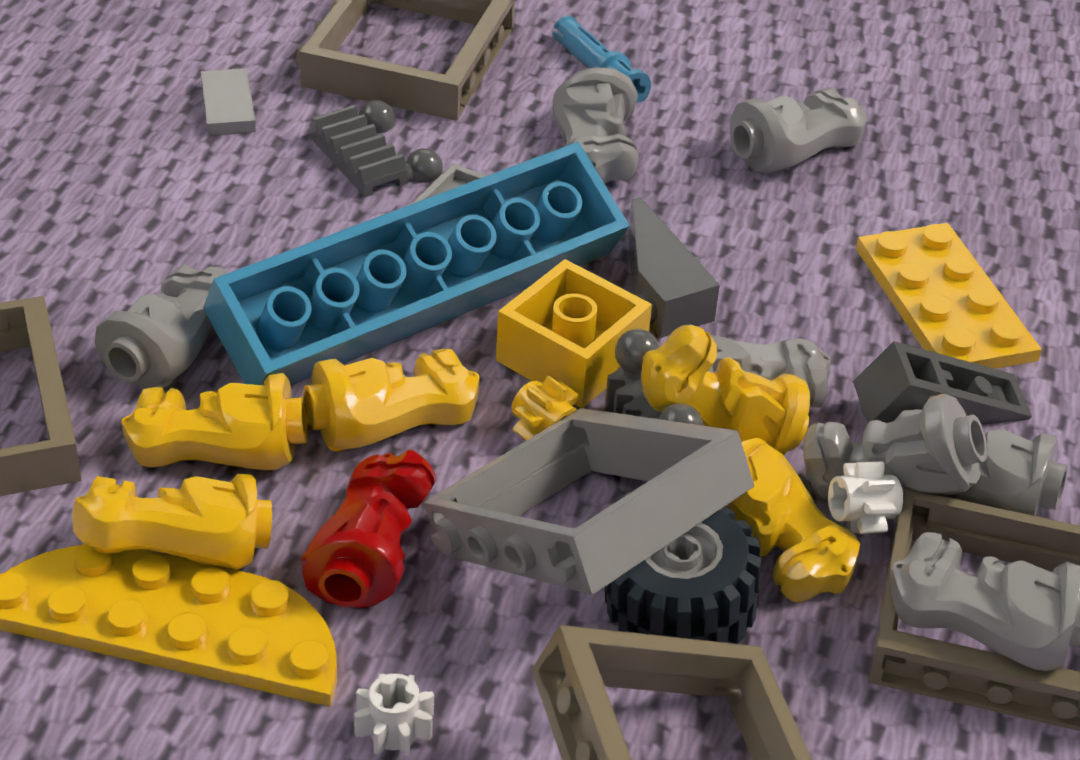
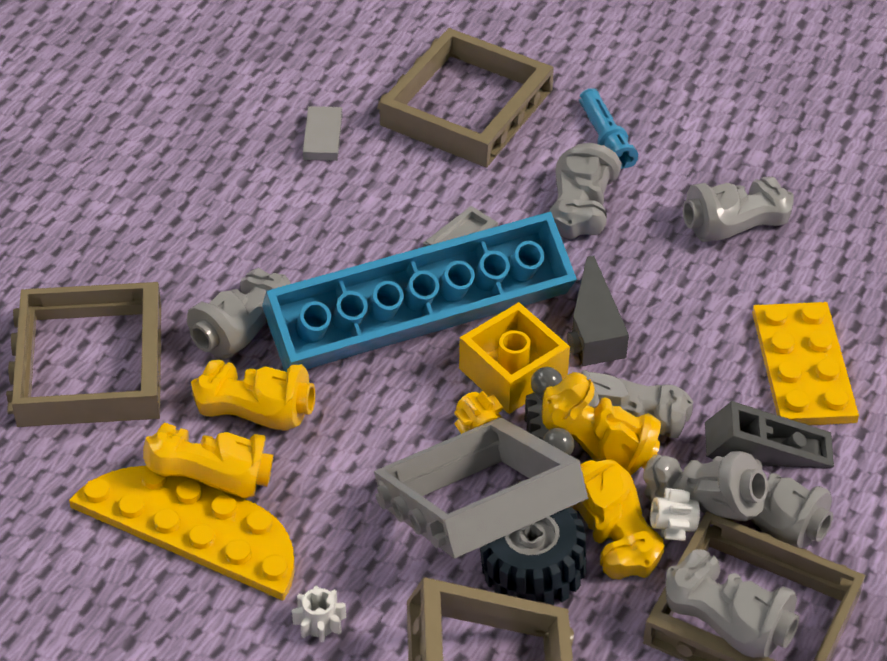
camera: 15 degrees right, 5 degrees up
(358, 550) = (324, 497): red animal -> none
(362, 155) = (408, 191): dark grey gear -> none
(376, 400) = (366, 390): yellow animal -> none

